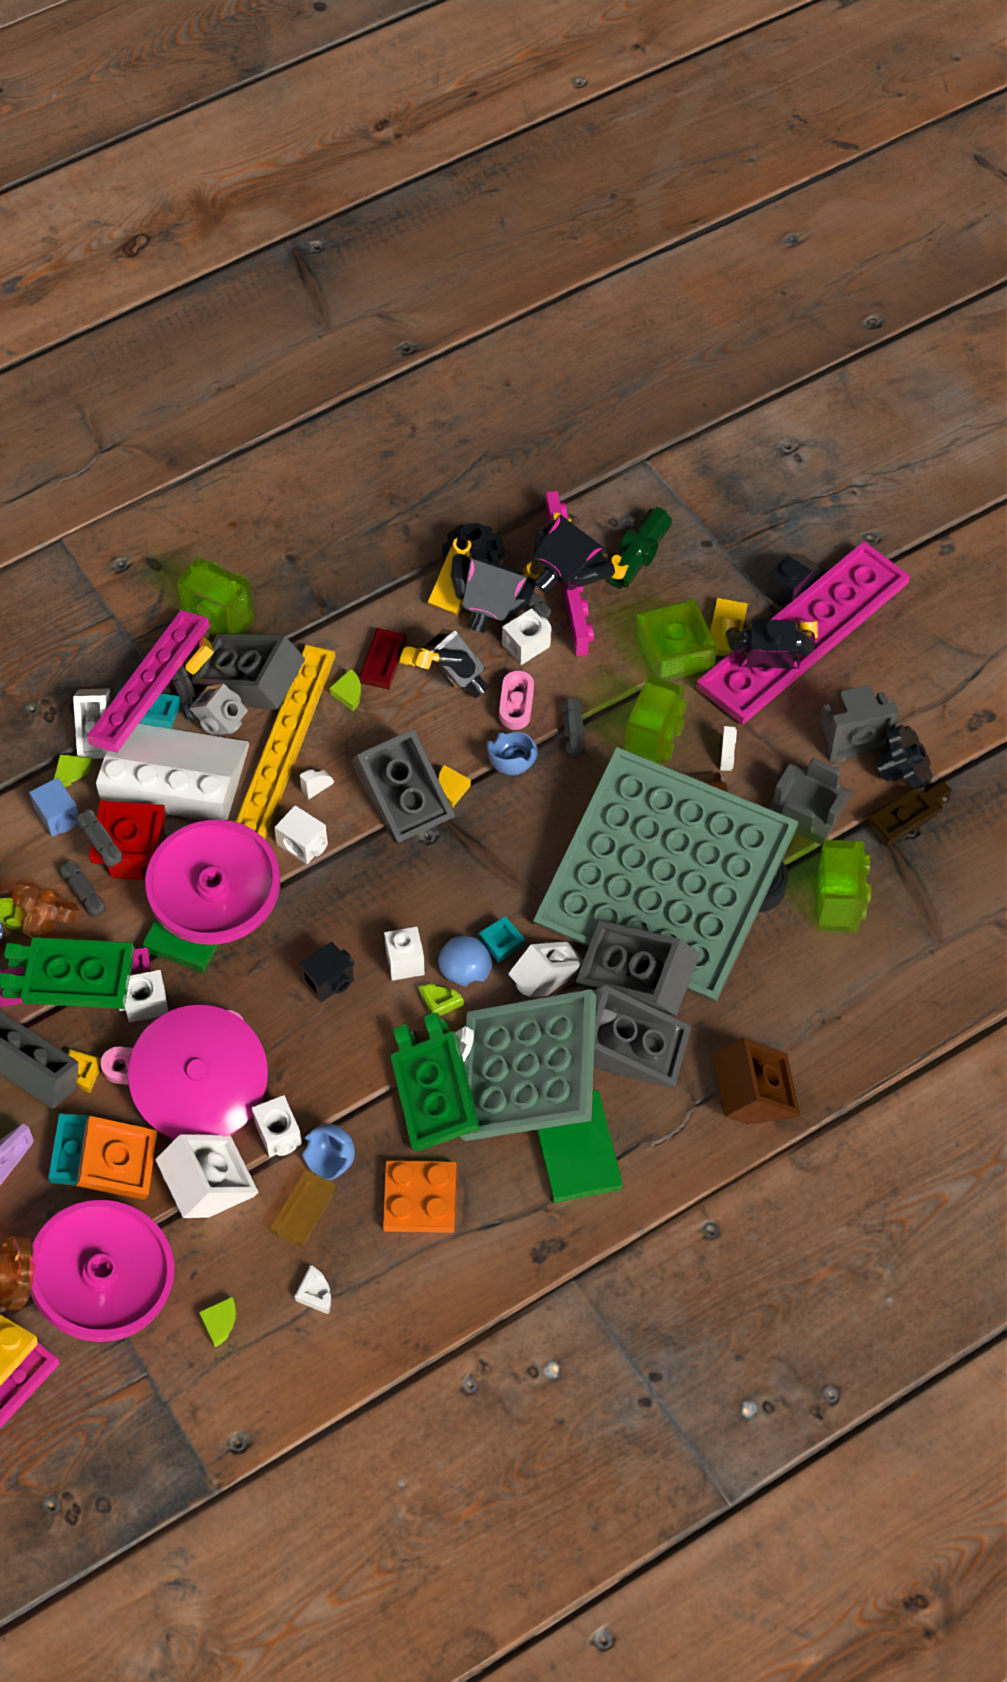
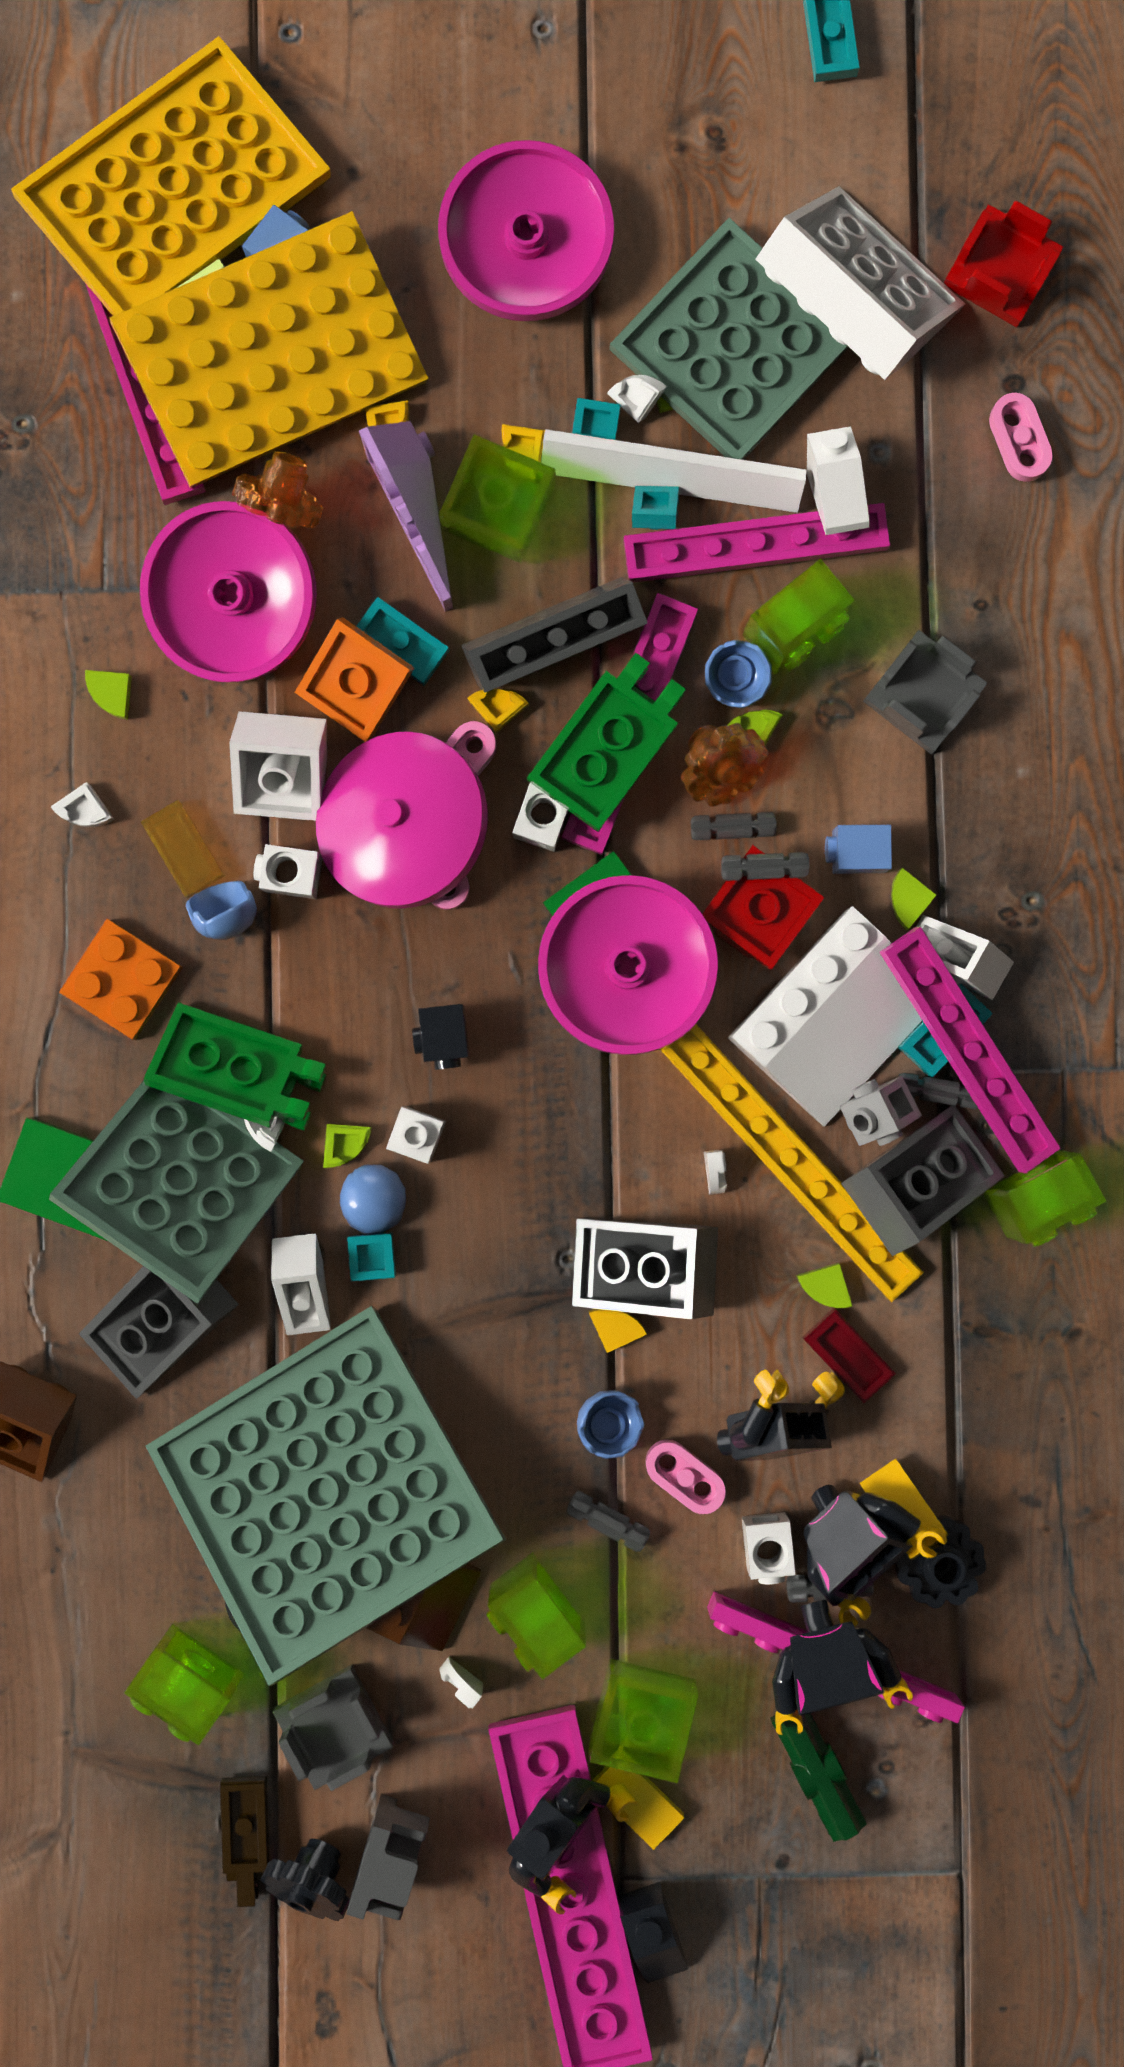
camera: 115 degrees right, 30 degrees up
(202, 654) = (981, 1137): yellow tile -> none
(301, 835) = (646, 1111): white brick -> none
(639, 965) = (228, 1381): dark grey slope -> none

